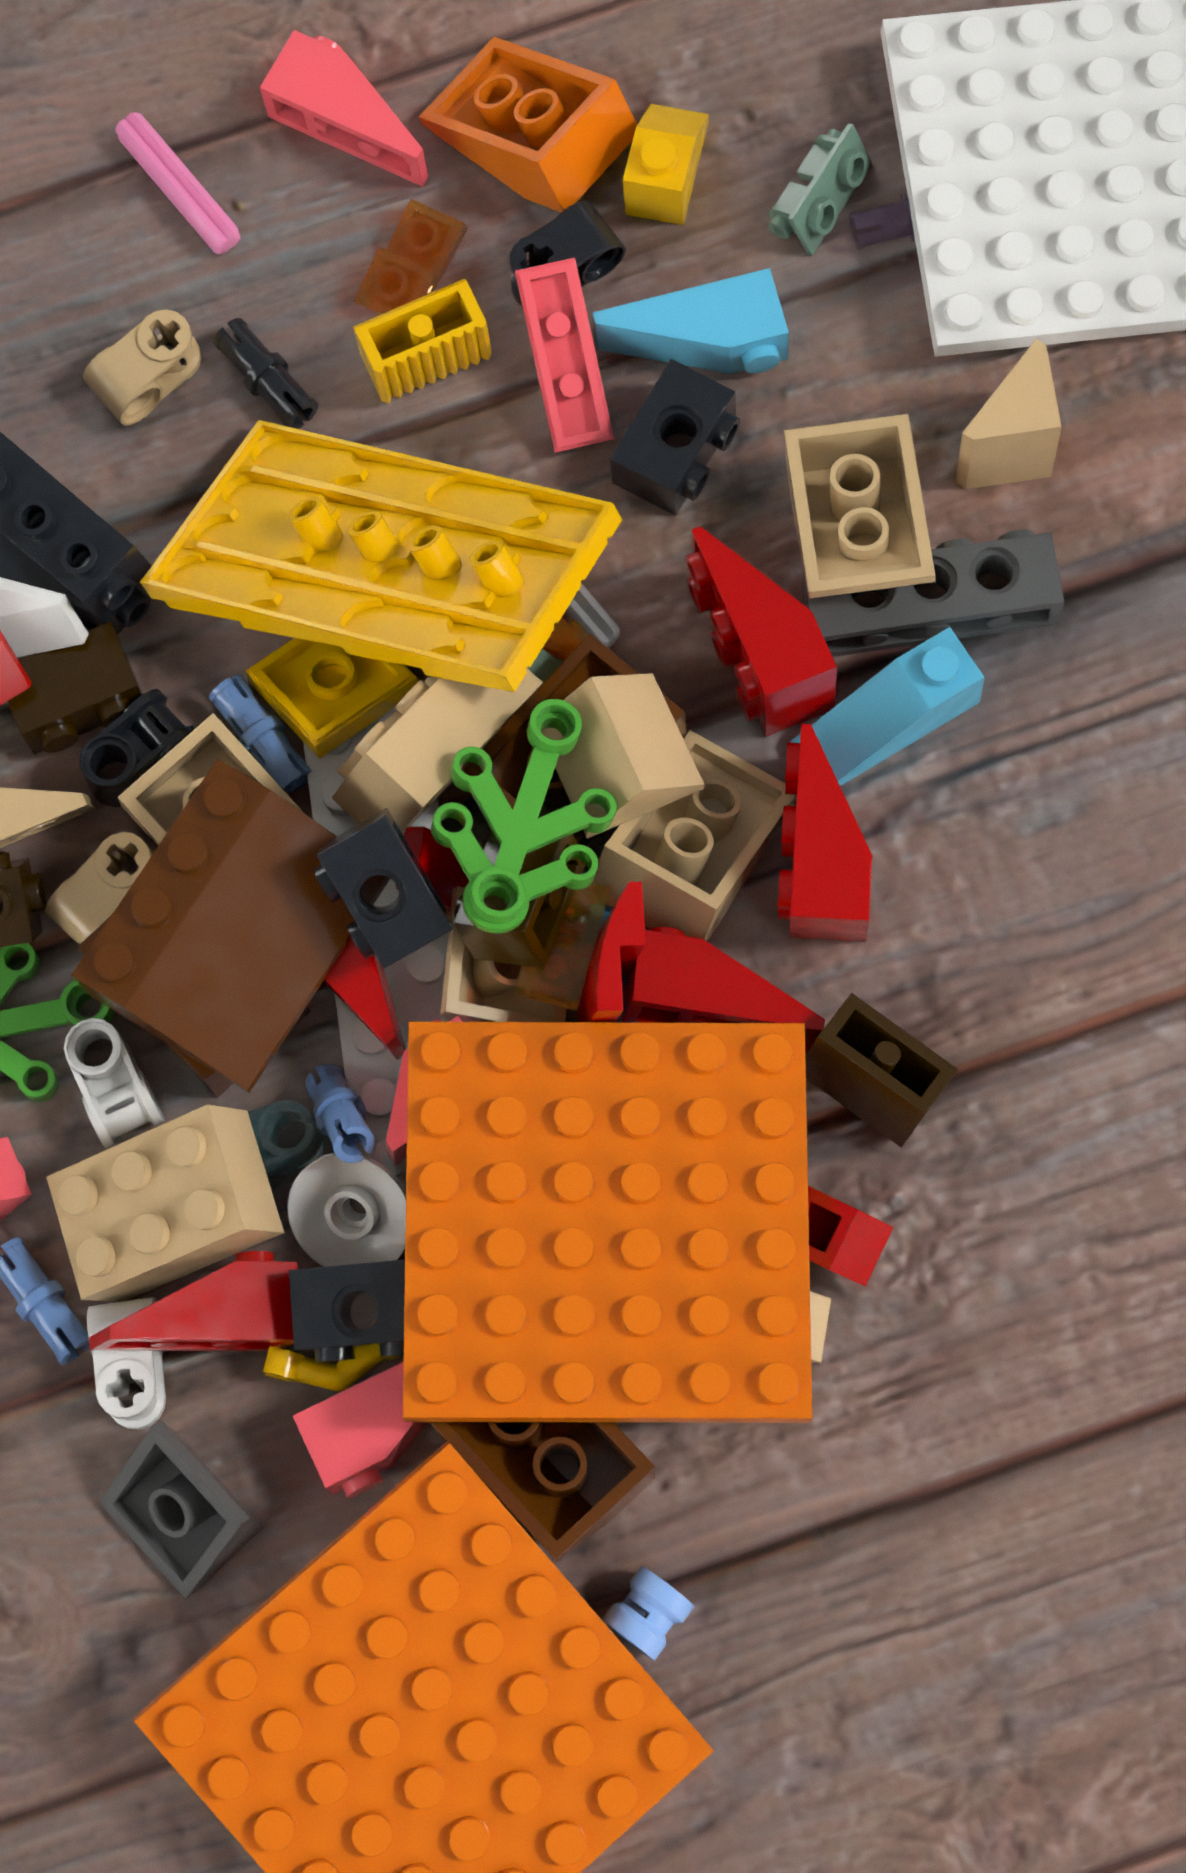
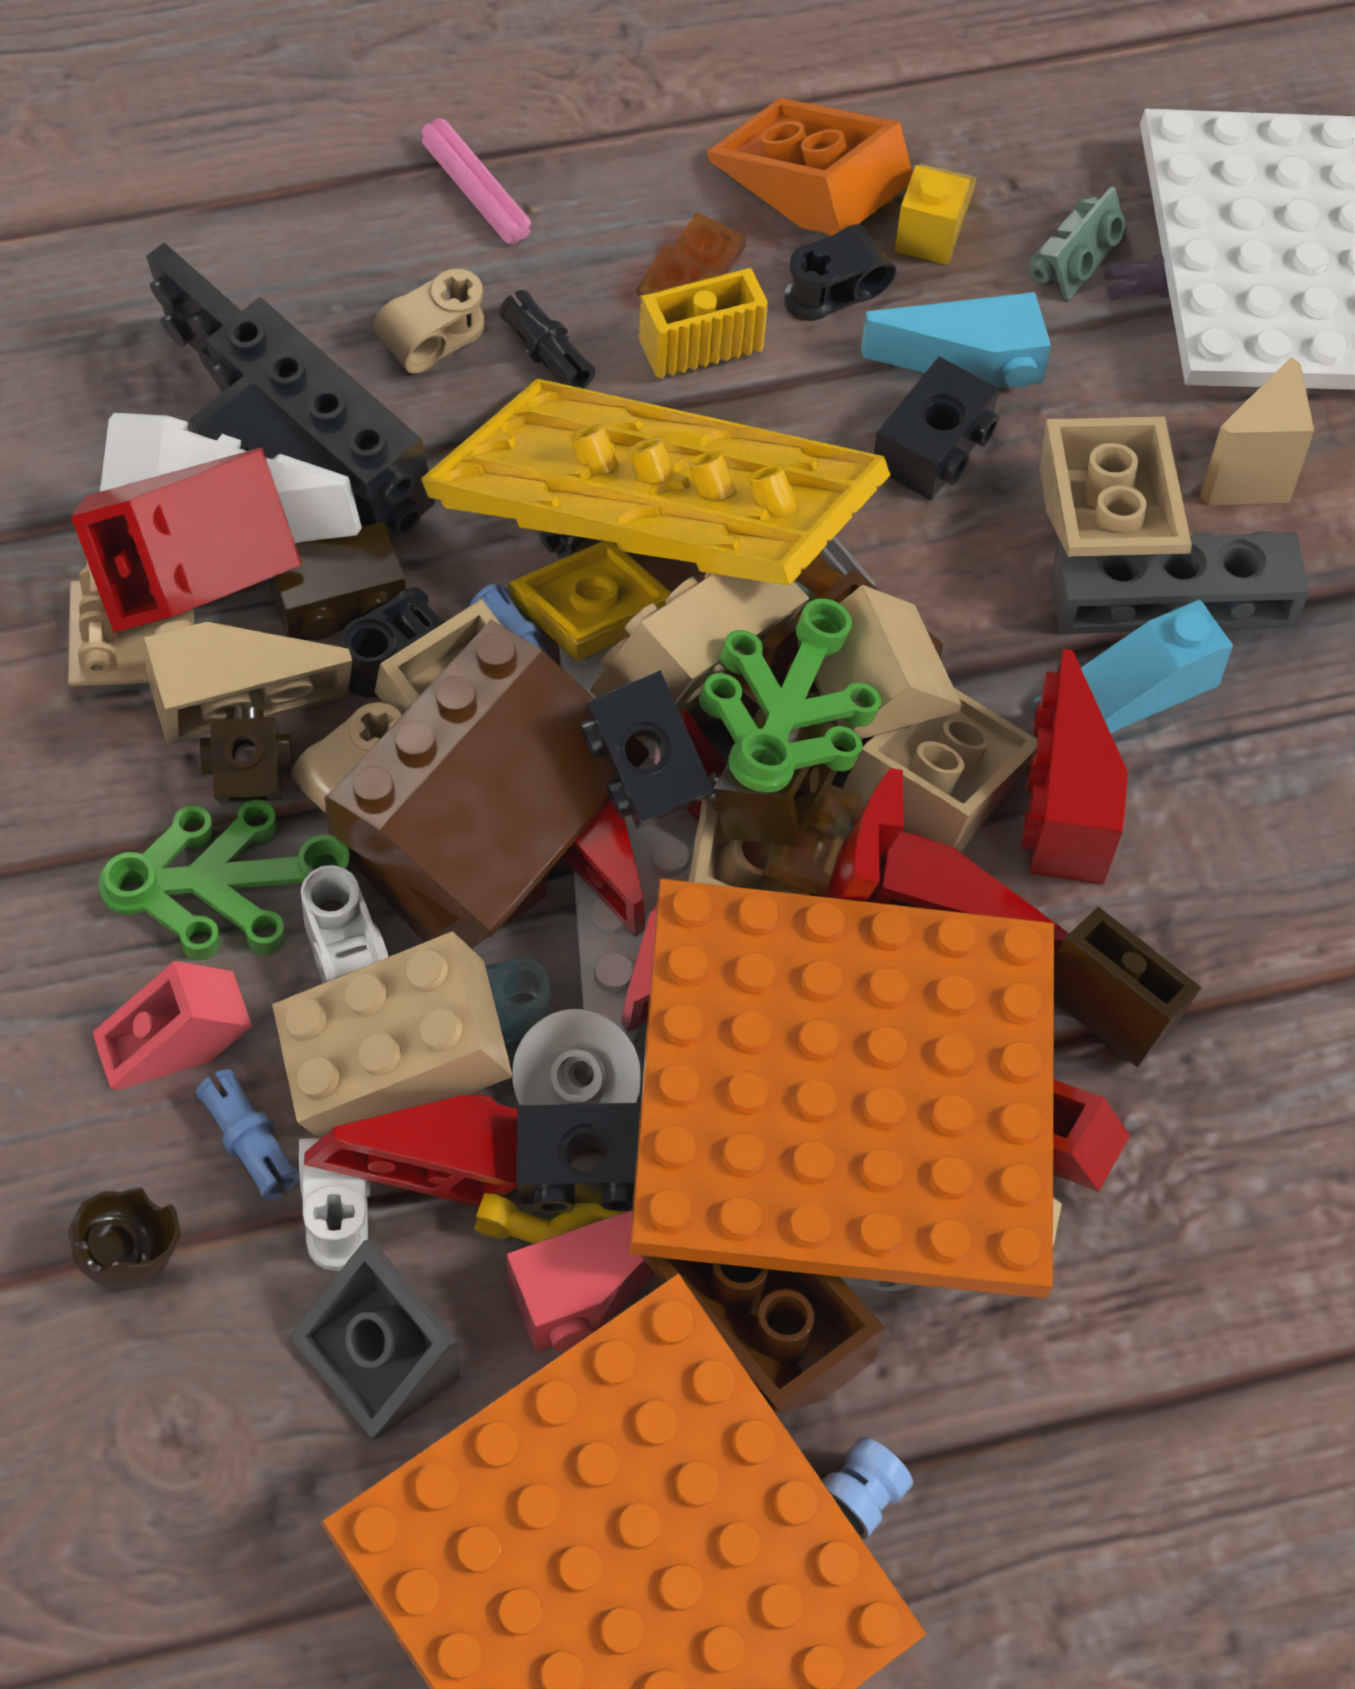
camera: 10 degrees left, 15 degrees down
(330, 99) = (634, 131): coral slope -> none
(339, 1113) = (576, 975): medium blue pin -> none
(564, 355) = (836, 348): coral tile -> none
(766, 635) = (1016, 590): red slope -> none

